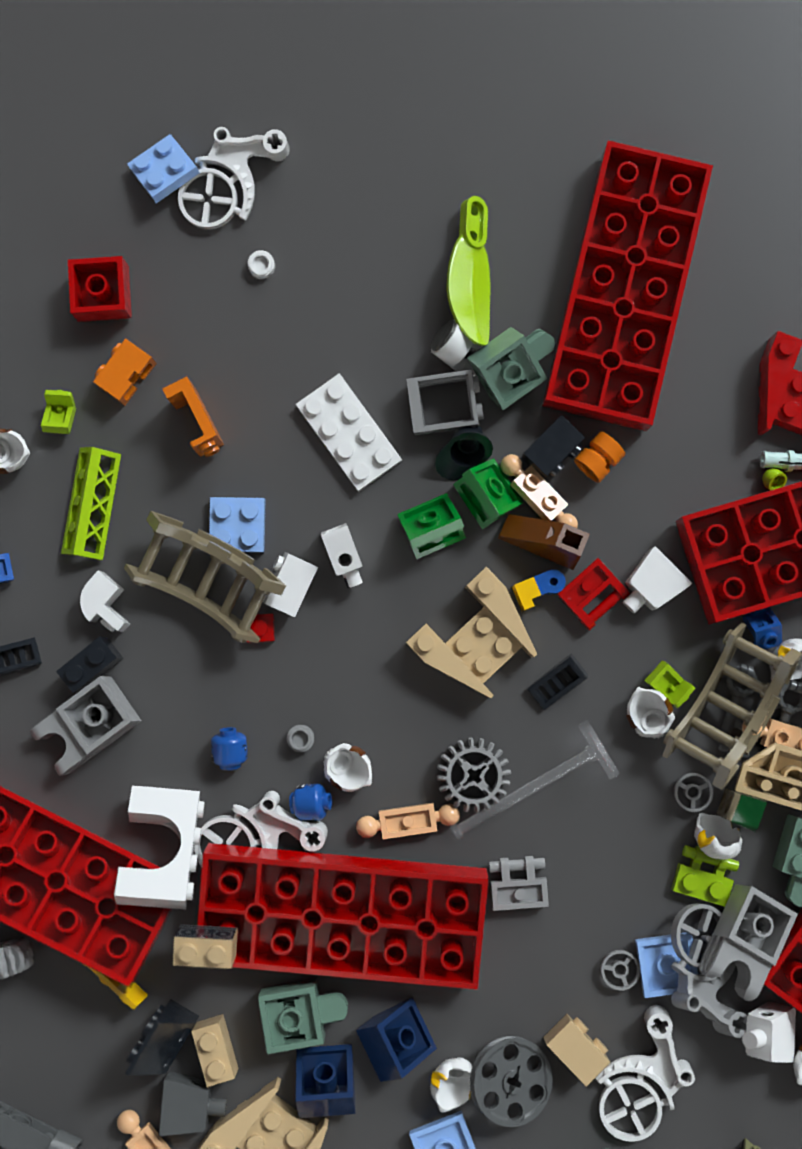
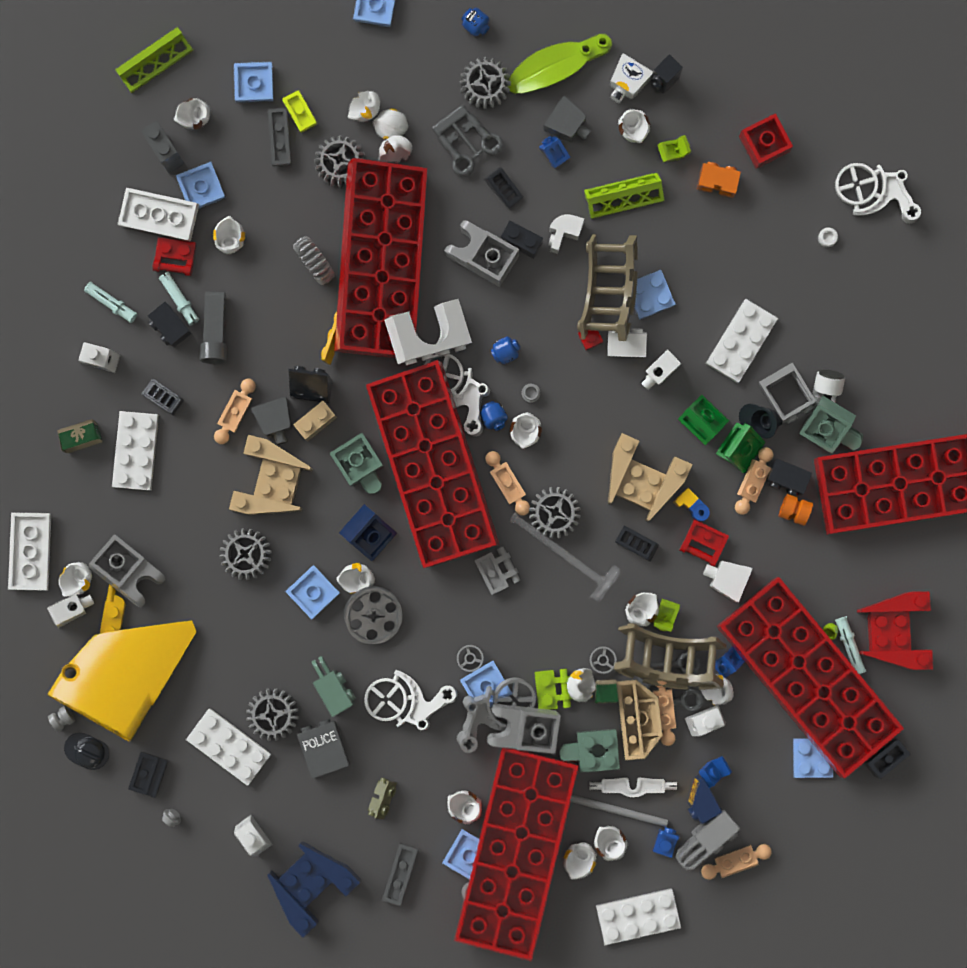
camera: 70 degrees right, 0 degrees up
(163, 168) = (863, 147): light blue plate -> none
(183, 393) = (721, 224): orange panel -> none
(205, 946) = (381, 385): tan brick -> none
(325, 1081) = (323, 498): dark blue slope -> none
(470, 273) = (880, 375): lime plant -> none
(546, 539) = (726, 496): reddish brown slope -> none
(577, 1050) = (409, 650): tan brick -> none
(771, 1032) = (471, 768): white torso -> none

